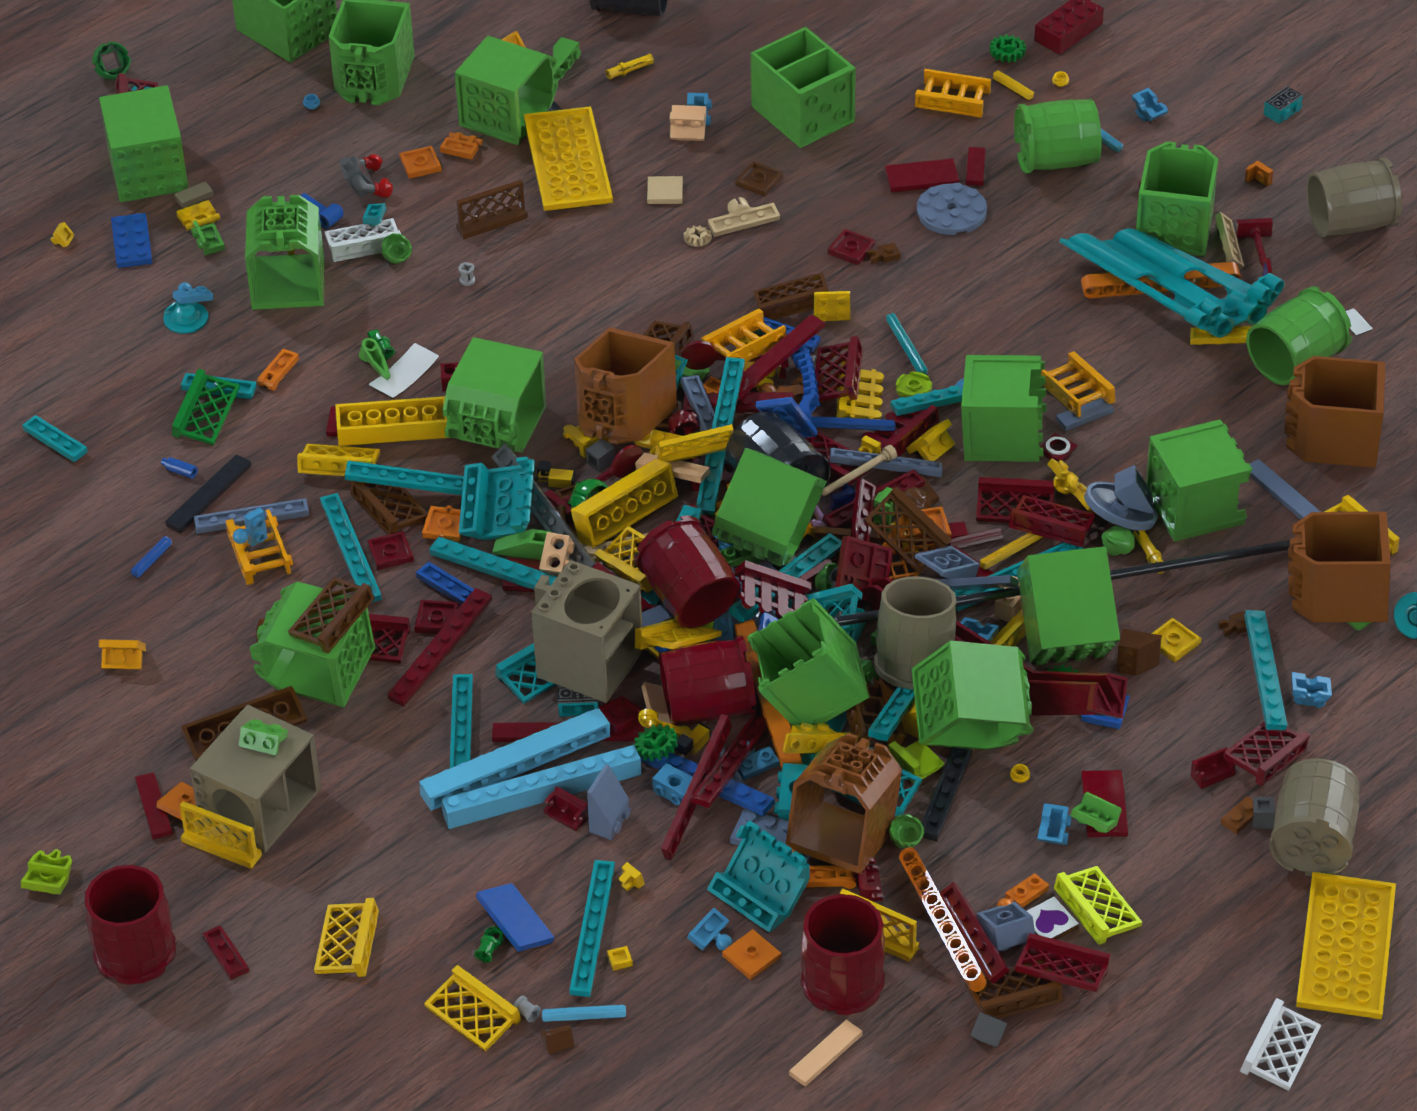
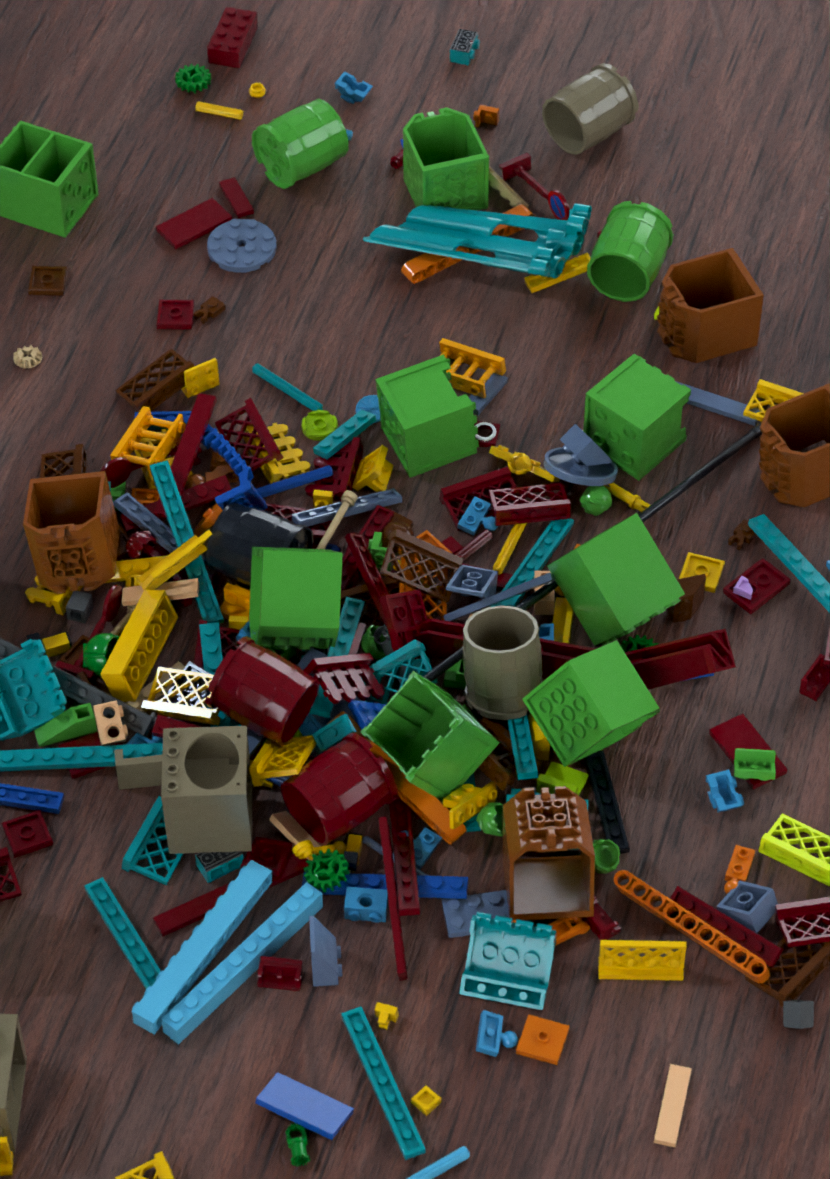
camera: 30 degrees left, 5 degrees up
(439, 647) = (52, 864): dark red plate -> none
(732, 629) = (333, 732): none -> teal plate
(742, 217) = (59, 323): tan plate -> none
(784, 793) = (481, 877): teal arch -> none
(843, 954) = (640, 1004): dark red piece -> none
(952, 103) = (174, 147): light orange fence -> none
(997, 512) = (475, 516): none -> dark azure plate
(1020, 773) = (658, 751): yellow plate -> none
(1052, 919) = (782, 880): tile -> none
(1198, 665) = (743, 588): none -> lavender tile
(1215, 670) = (765, 582): none -> dark red plate

